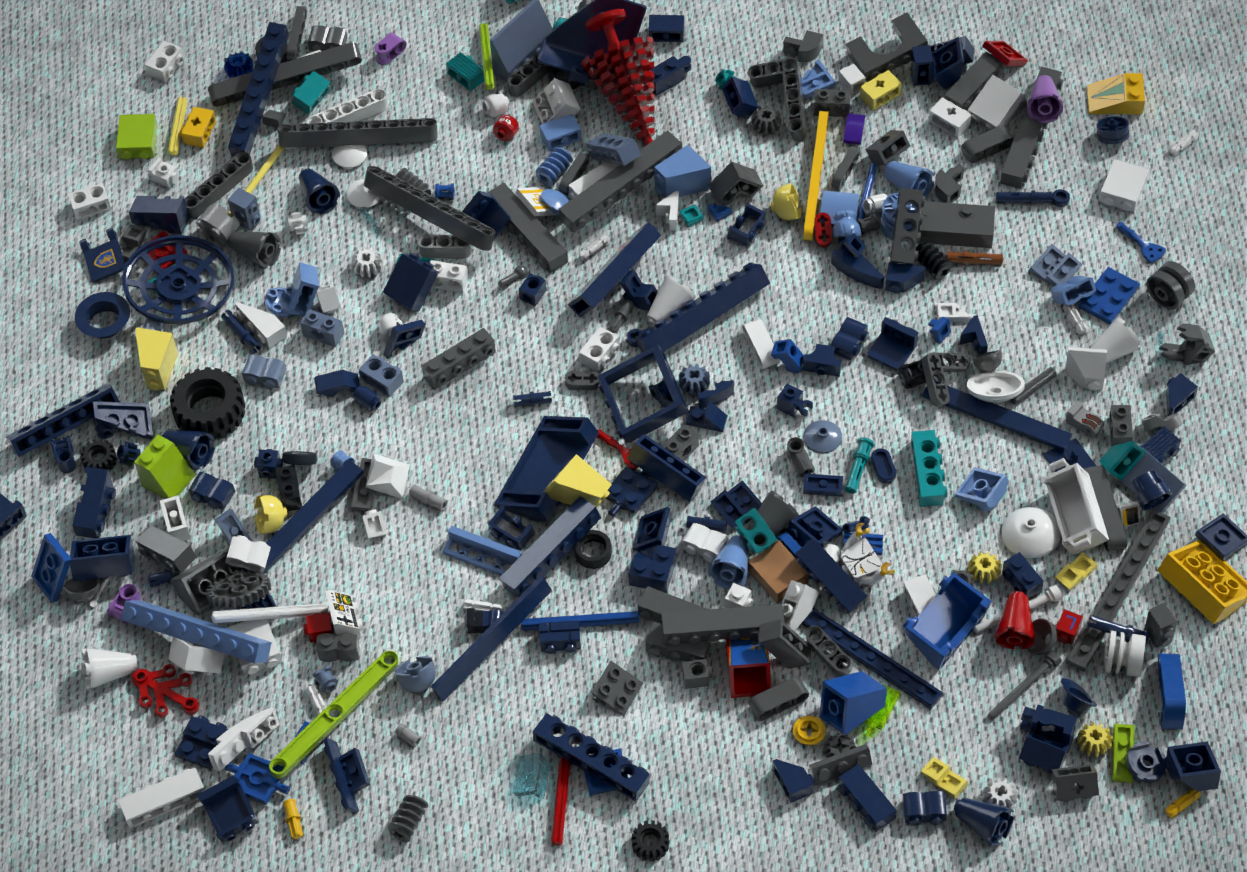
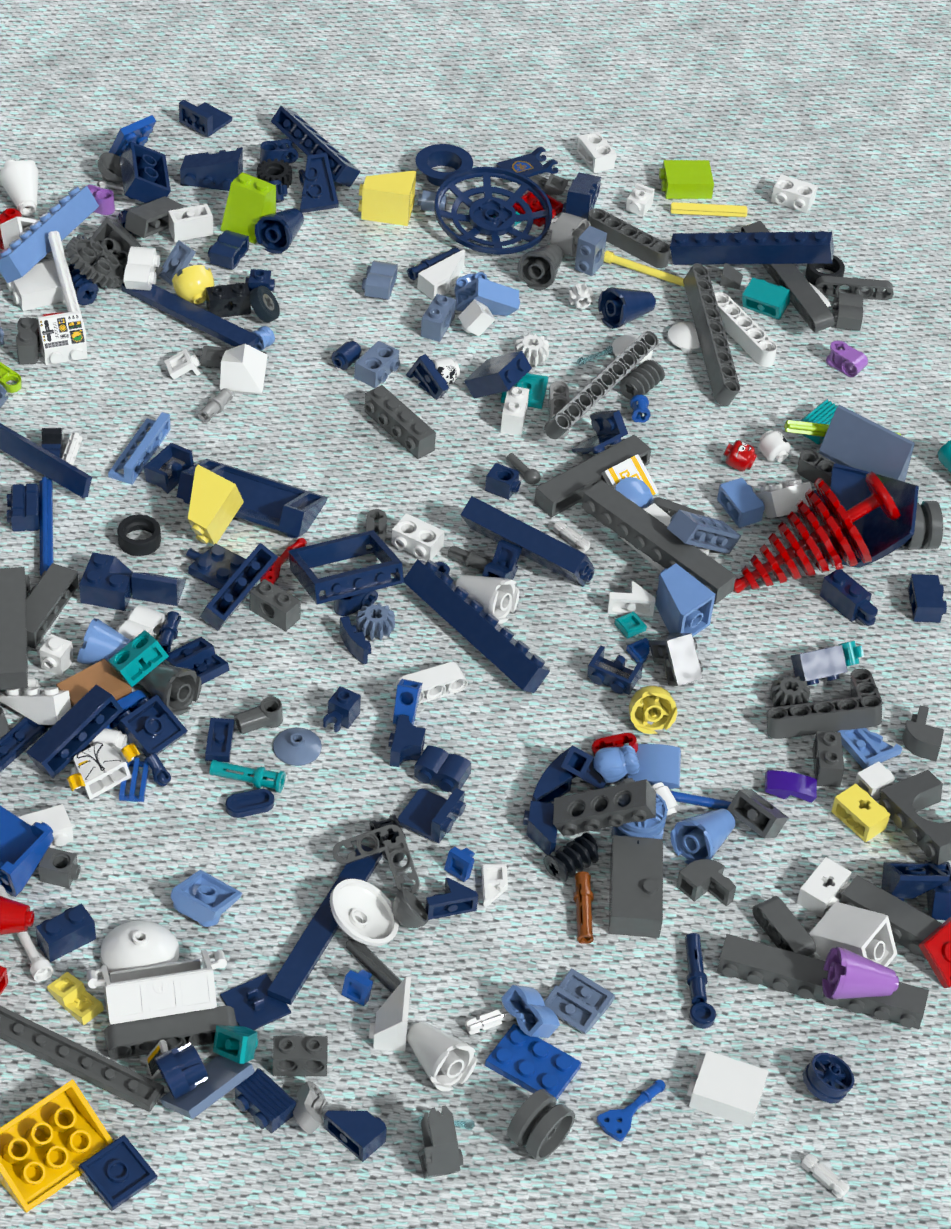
camera: 80 degrees right, 10 degrees down
(198, 127) = (705, 219): yellow brick -> none
(202, 385) = (333, 237): black tyre -> none
(332, 382) = (366, 330): dark blue slope -> none
(532, 399) = (348, 484): dark blue pin -> none
(551, 546) = (136, 491): brick -> none
(553, 166) = (685, 496): medium blue piece -> none
(709, 418) = (321, 636): dark blue slope -> none
(815, 176) = (722, 743): yellow beam -> none
(845, 168) = (700, 765): dark grey beam -> none
(921, 65) = (906, 845): dark blue brick -> none
(928, 494) = (240, 842): teal brick -> none
(984, 567) = (85, 891): light yellow gear -> none
(1056, 393) = (357, 986): none -> blue tile
(1084, 420) = (316, 1015): light grey leg -> none
(1117, 95) = (900, 1094): yellow slope -> none

